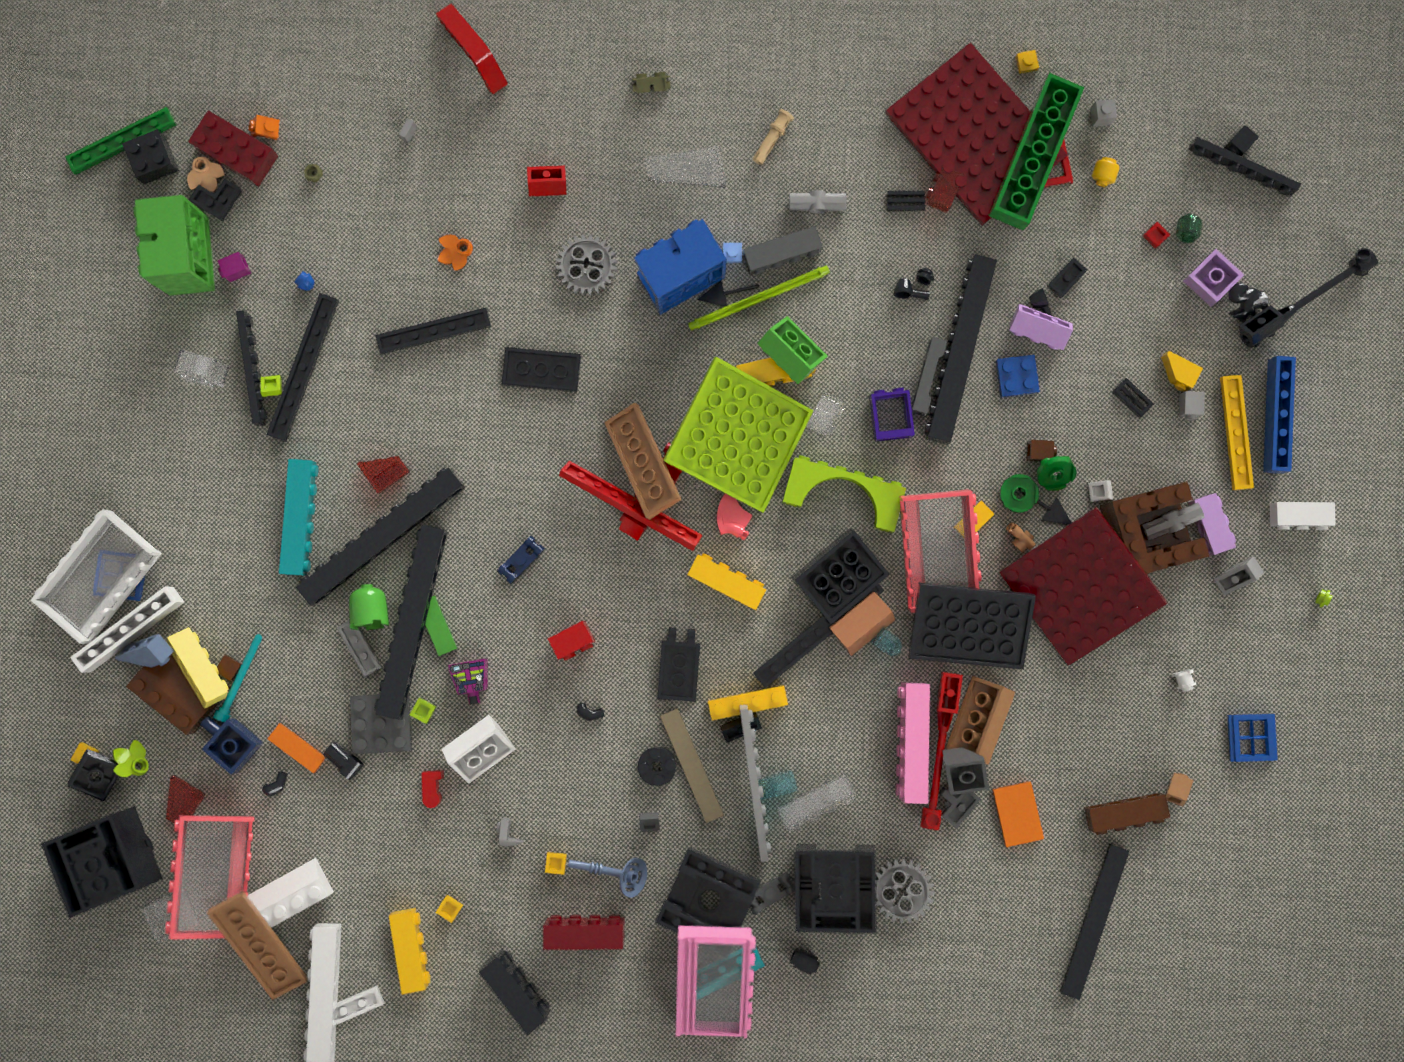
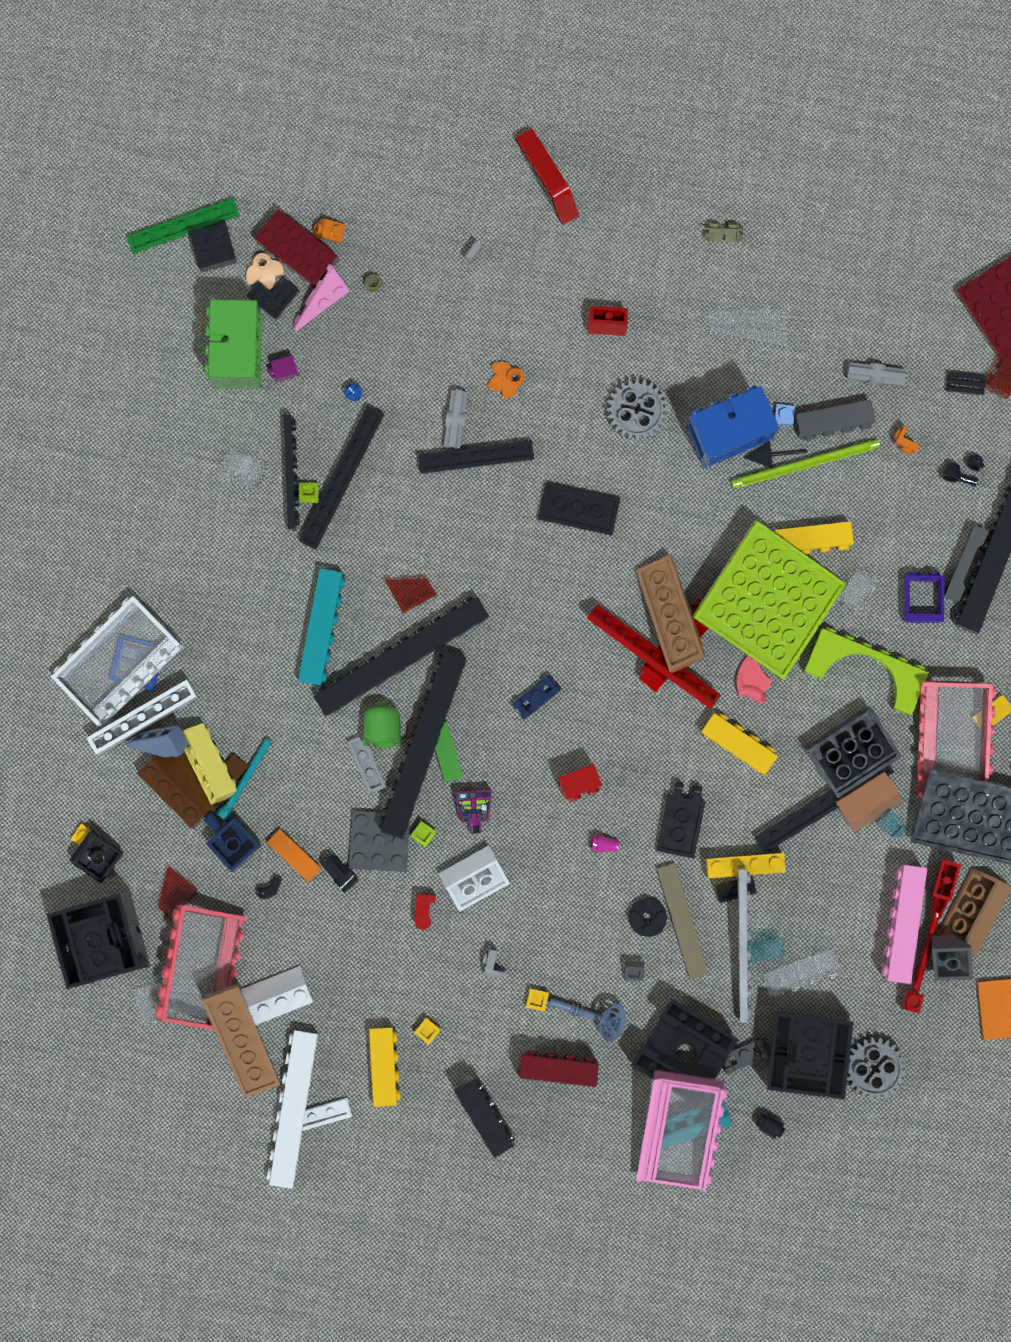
camera: 10 degrees right, 0 degrees up
(128, 758) = (130, 846): lime plate -> none
(266, 189) = (323, 296): none -> bright pink wing
(409, 296) = (455, 419): none -> light grey piece
(588, 714) = (587, 859): black arm -> none
(604, 698) = (603, 844): none -> dark pink cone
(776, 130) = (844, 295): tan pin -> none
(792, 349) = (832, 521): bright green slope -> none
(855, 267) = (906, 445): none -> orange bracket
(958, 806) = (941, 993): dark grey hinge -> none

